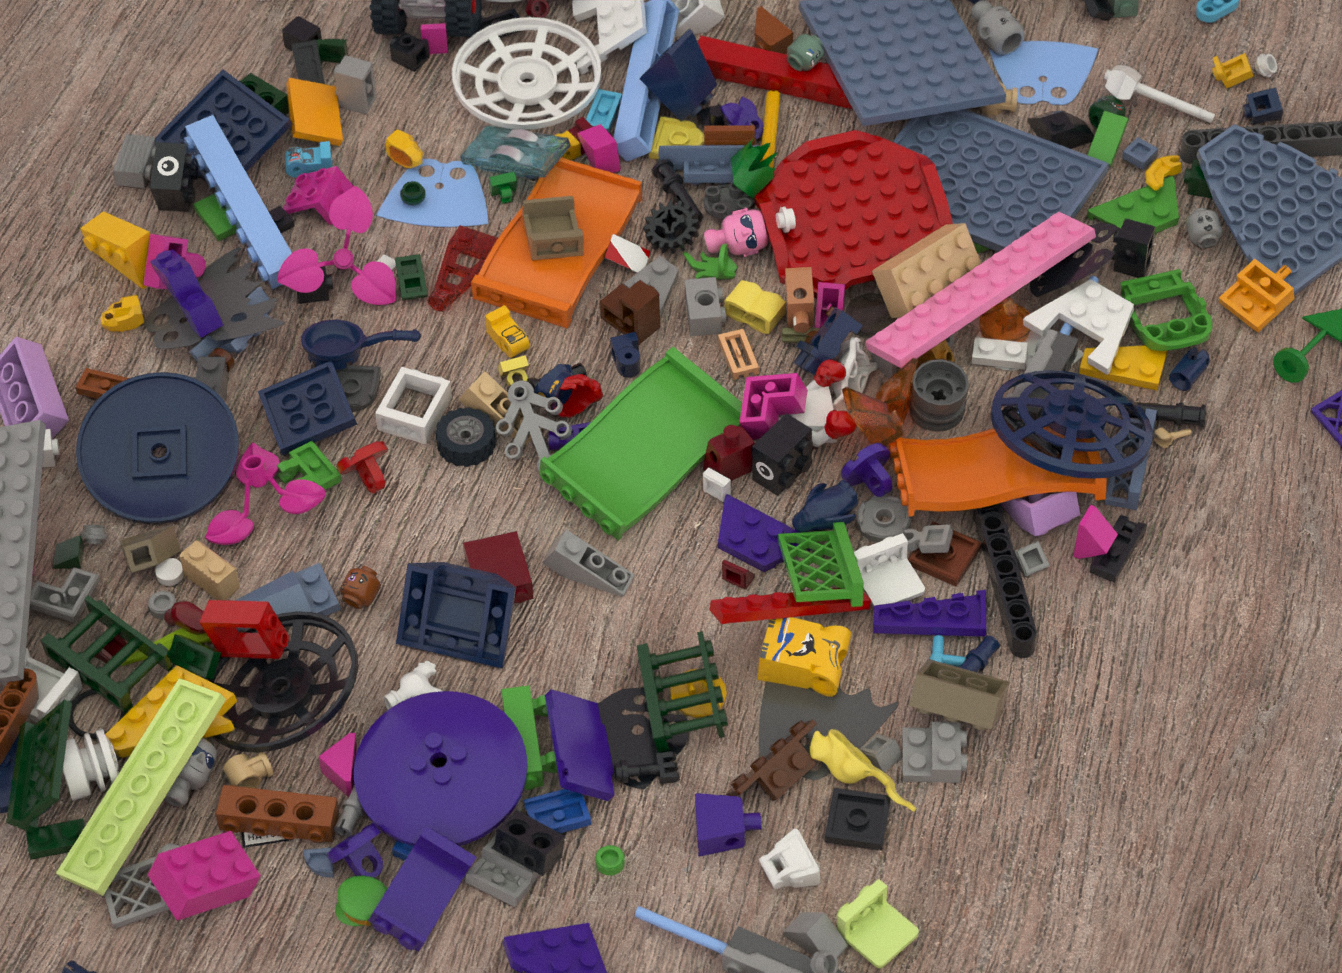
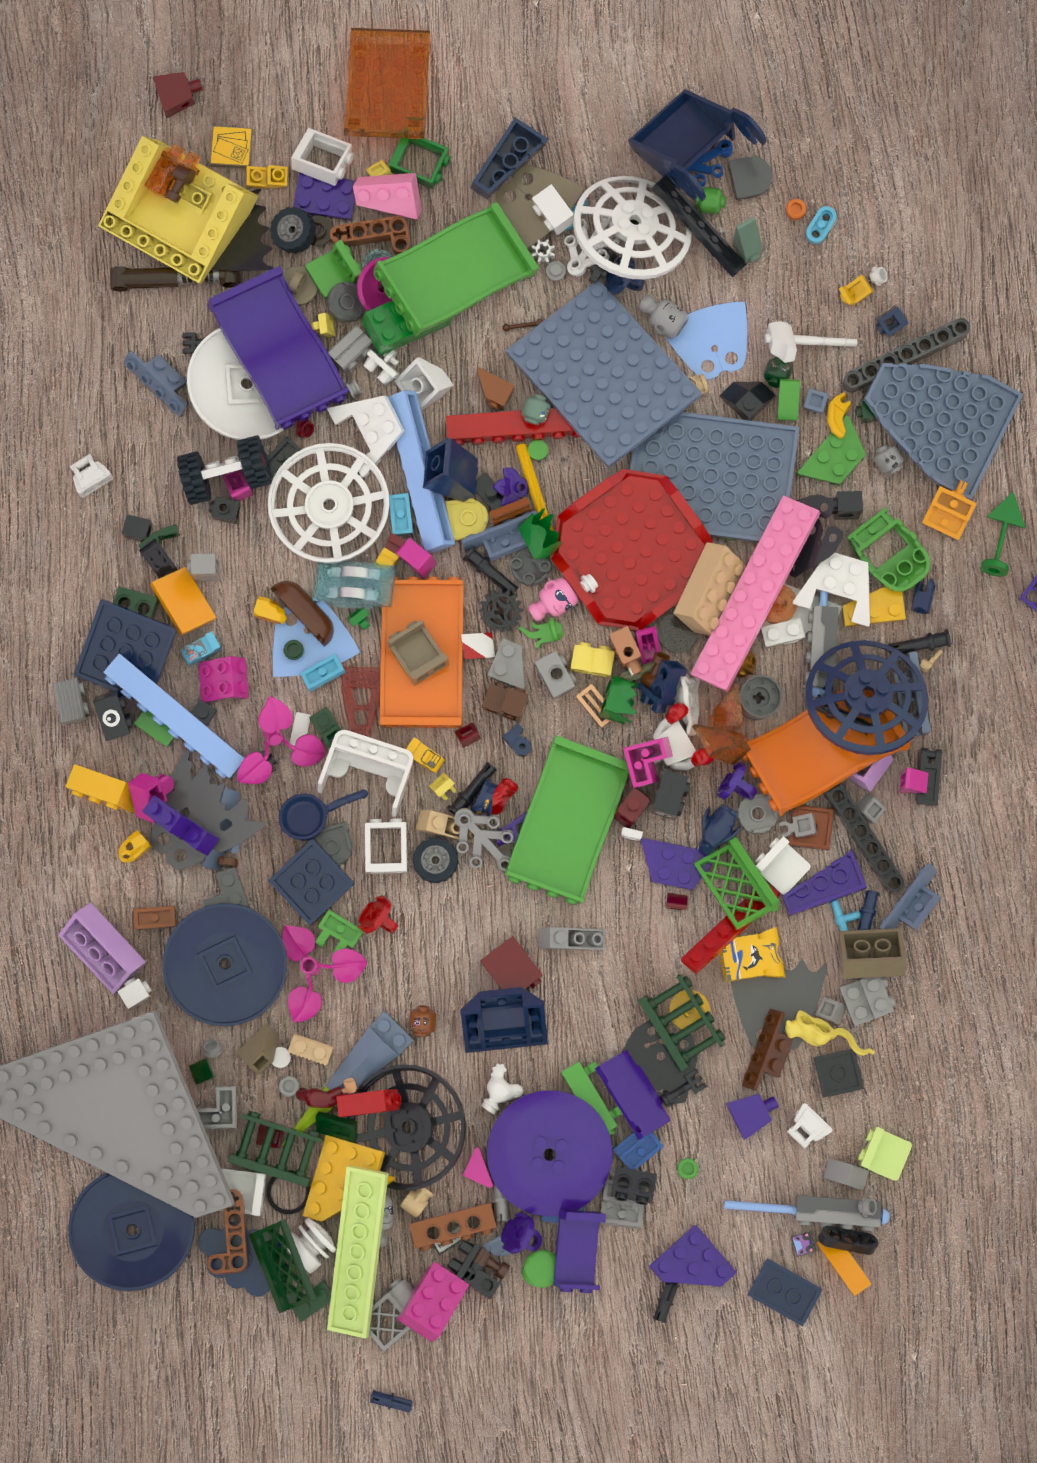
camera: 20 degrees left, 30 degrees up
(276, 870) = (473, 1266): none -> black hips
(433, 222) = (322, 672): none -> medium azure plate
(438, 305) = (371, 756): none -> white windscreen
(446, 165) = (305, 610): none -> reddish brown brick
(570, 335) = (467, 735): none -> dark red slope
(763, 347) = (618, 700): none -> green piece
(791, 105) = (537, 450): none -> bright green tile
(1042, 665) = (915, 903): none -> sand blue bracket

